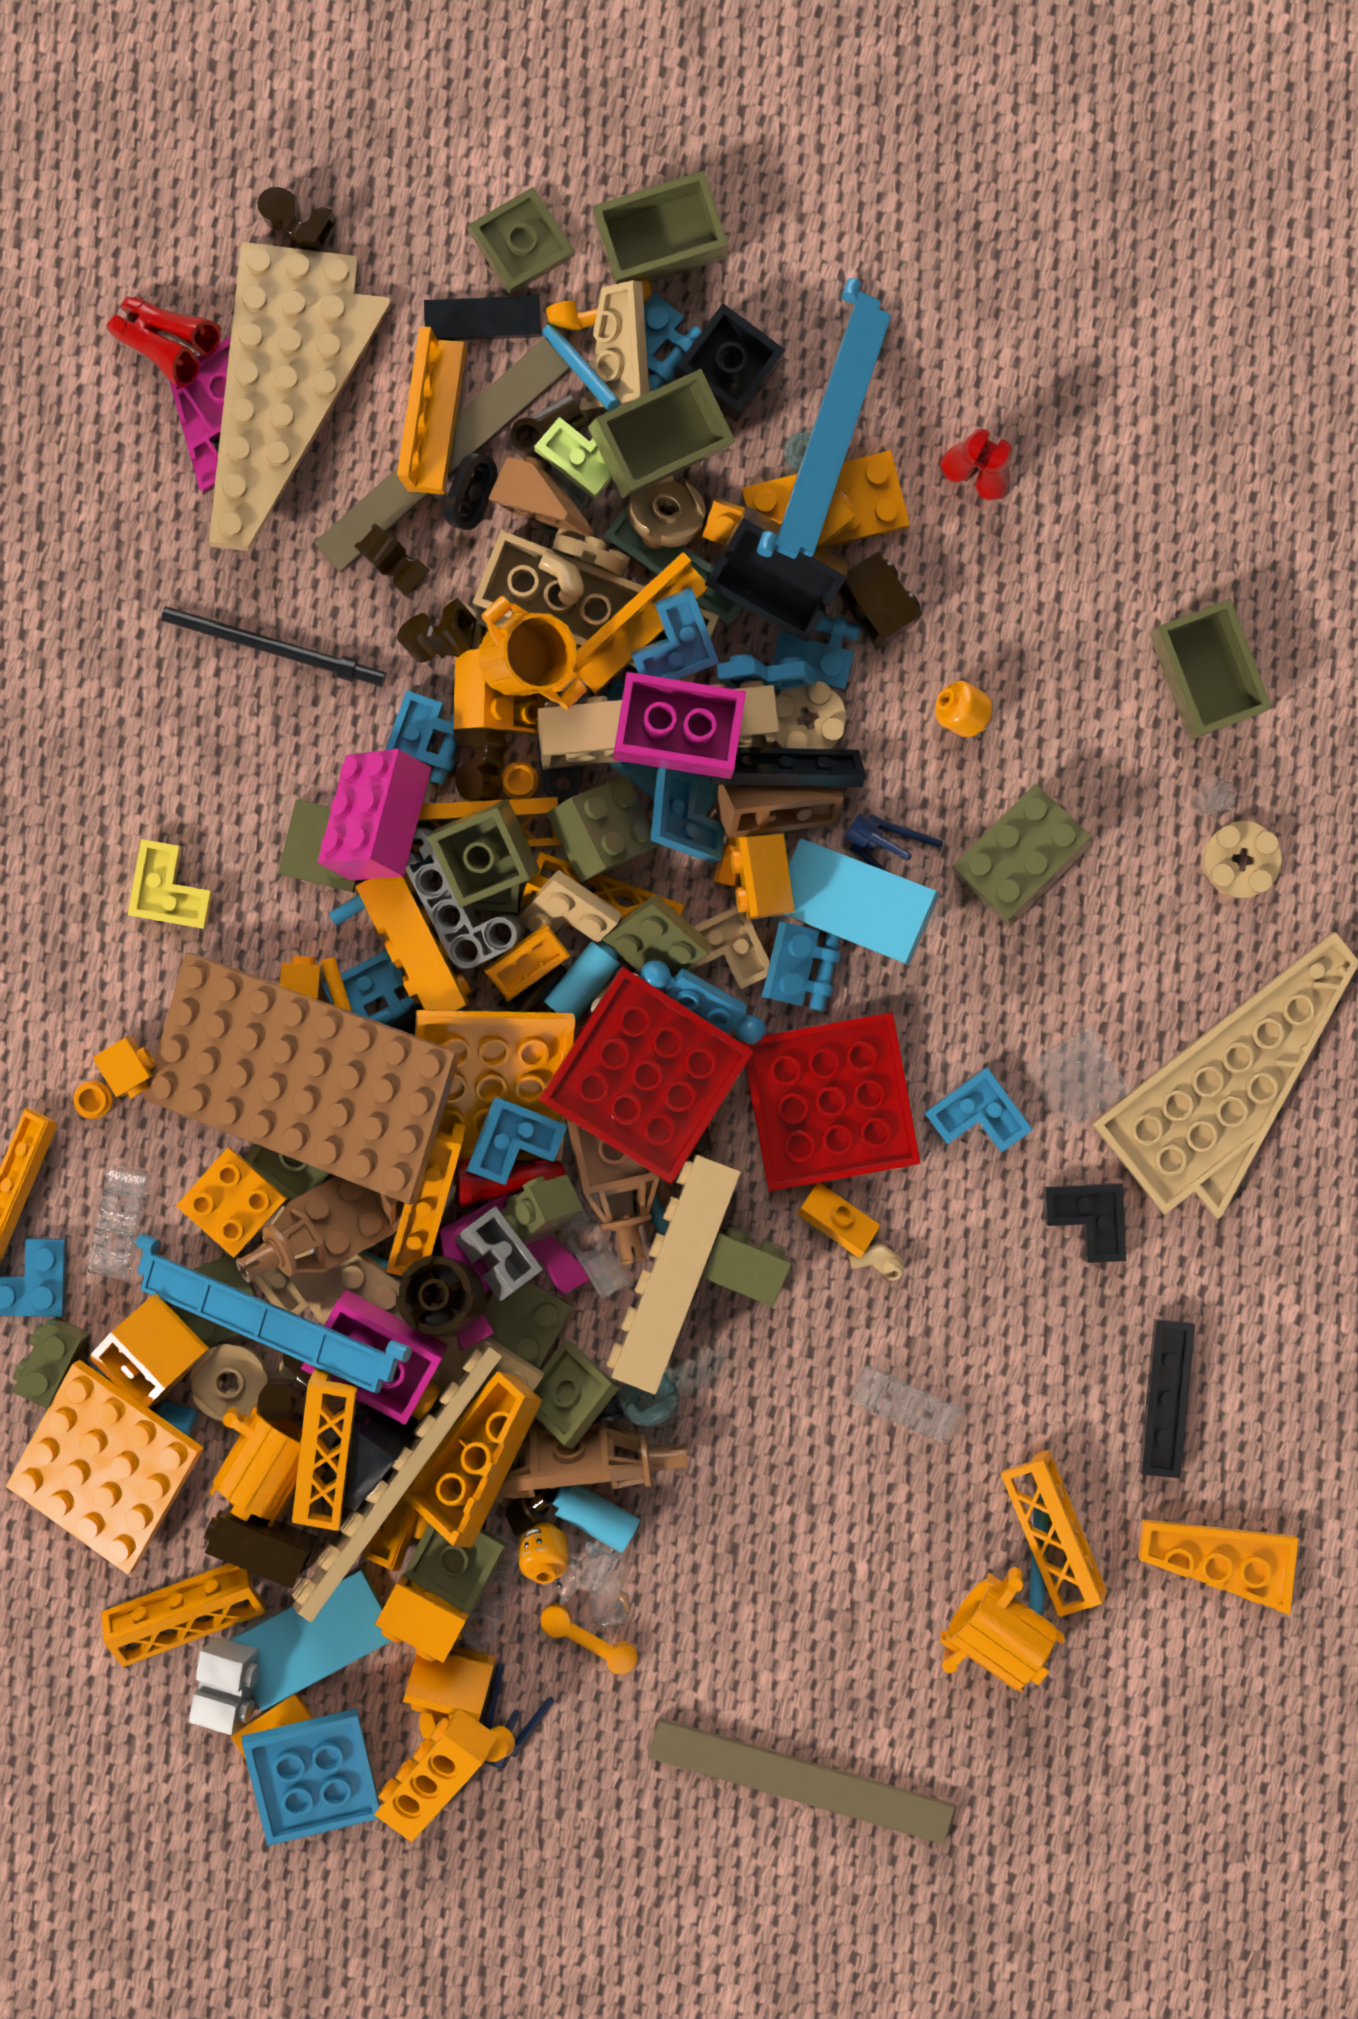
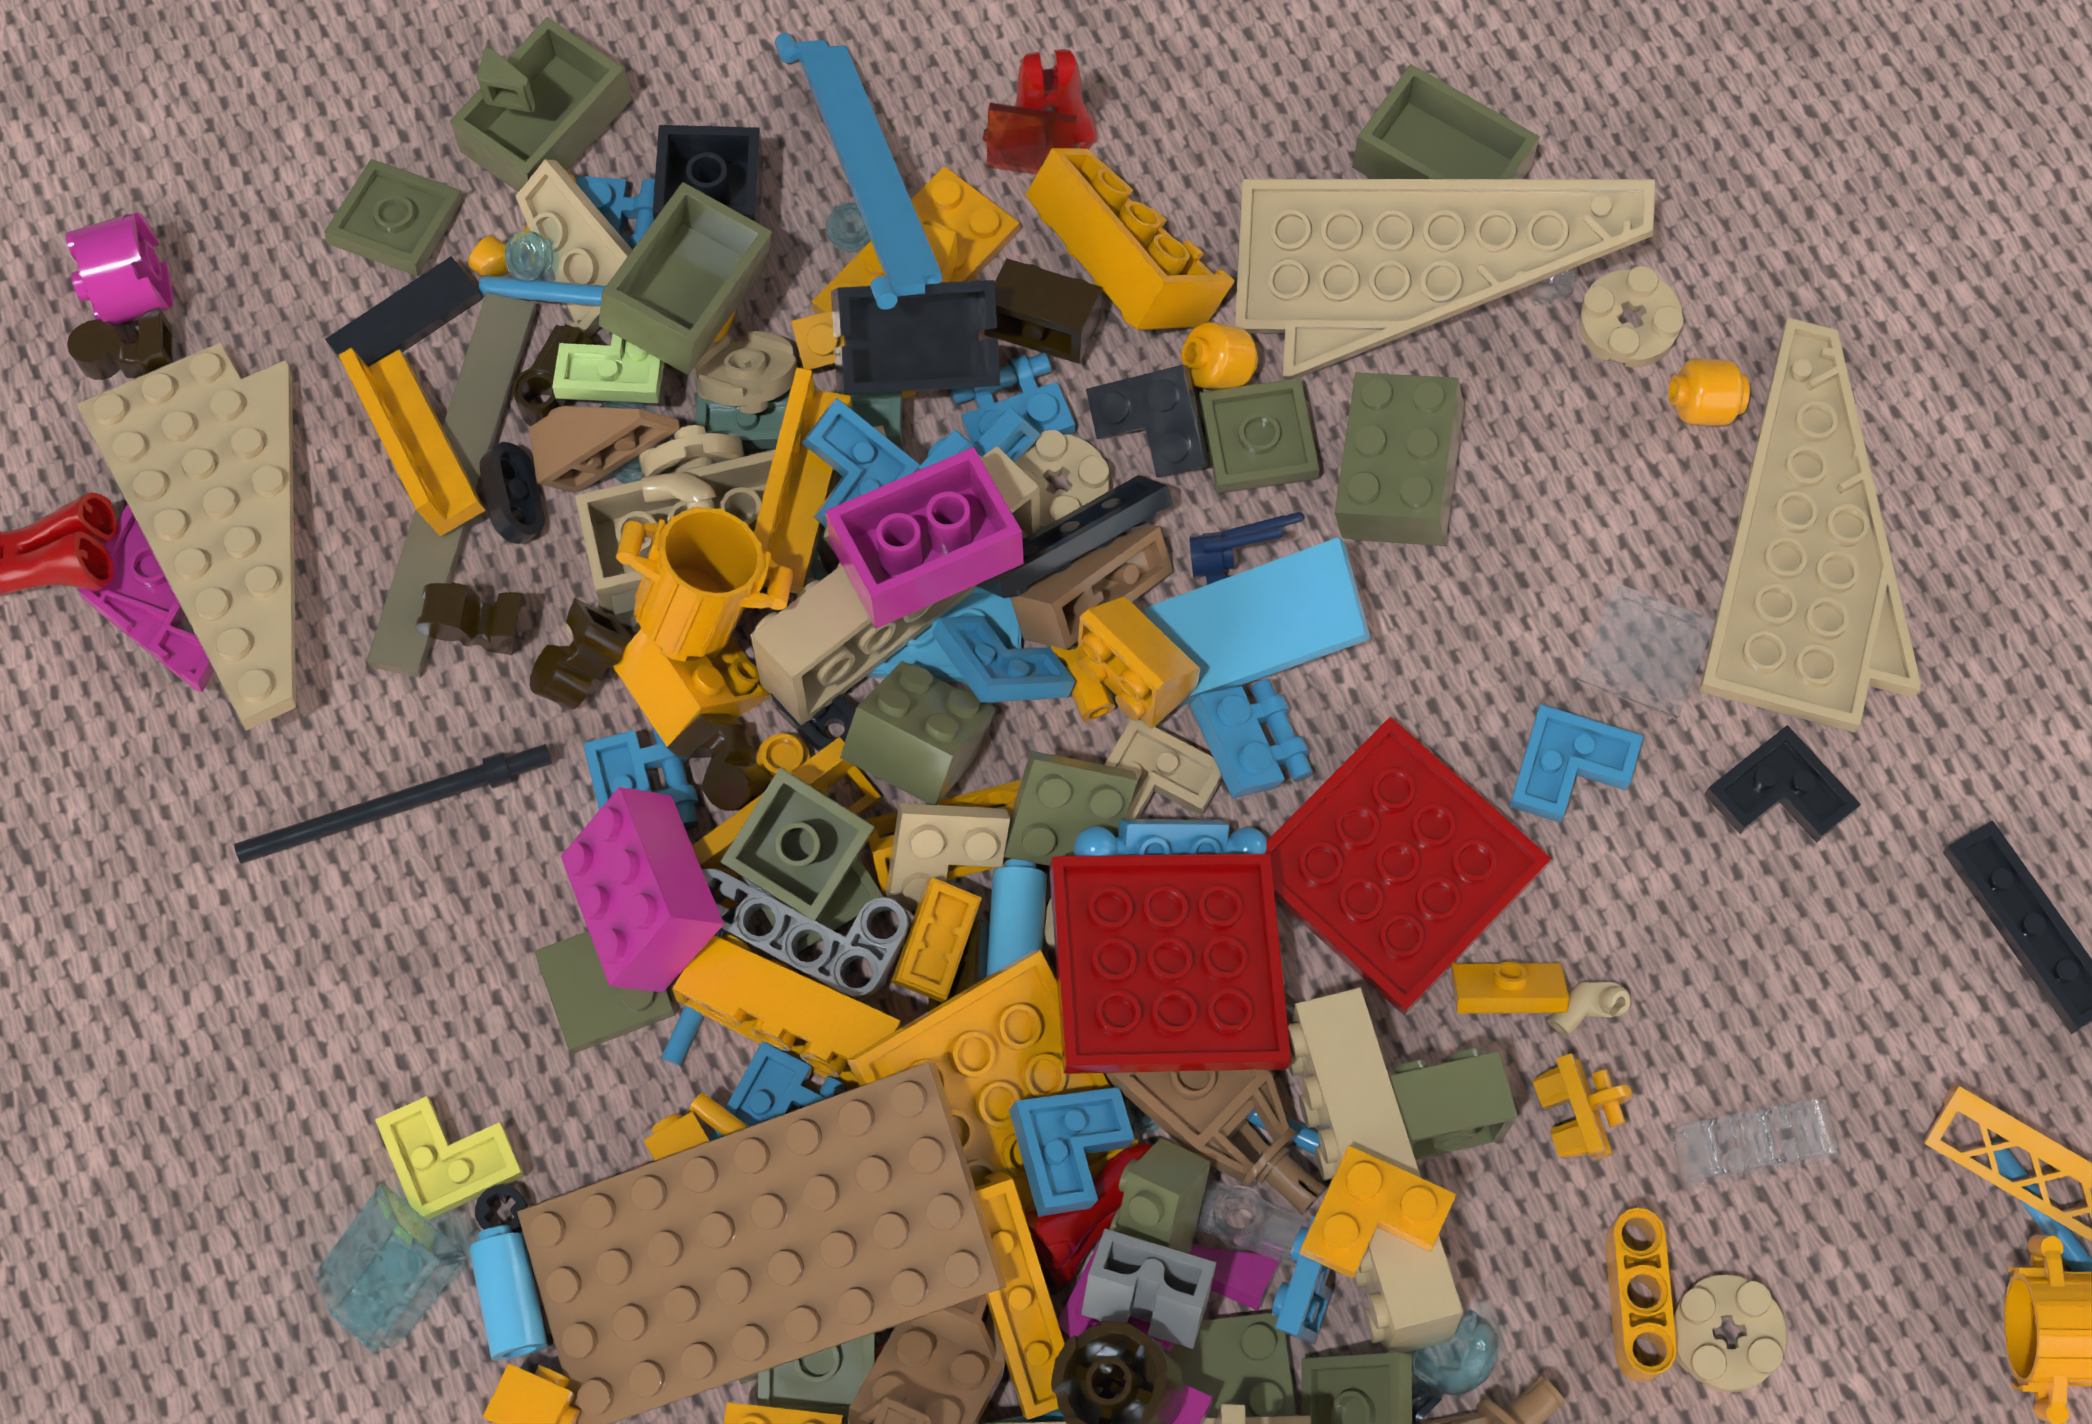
camera: 35 degrees left, 20 degrees down
(91, 932) = (386, 1271): none -> clear light blue slope
(152, 993) = (507, 1294): none -> medium azure brick
(171, 933) = (484, 1213): none -> black bush
(323, 164) = (119, 269): none -> dark pink brick
(582, 1316) = (1306, 1299): none -> dark azure plate
(583, 336) = (528, 256): none -> clear light blue plate
(638, 208) = (503, 84): none -> olive slope
(650, 1295) = (1372, 1196): none -> light orange plate
(775, 1458) = (1652, 1270): none -> light orange beam
(819, 1331) = (1587, 1132): none -> light orange hips
(831, 1485) = (1756, 1352): none -> tan plate
(903, 716) = (1163, 406): none -> black plate
(951, 775) = (1258, 435): none -> olive plate
(954, 476) = (1023, 136): none -> clear red piece
(959, 591) = (1124, 245): none -> light orange wedge
(1113, 720) = (1385, 257): none -> tan wing
(1248, 945) = (1709, 392): none -> light orange head

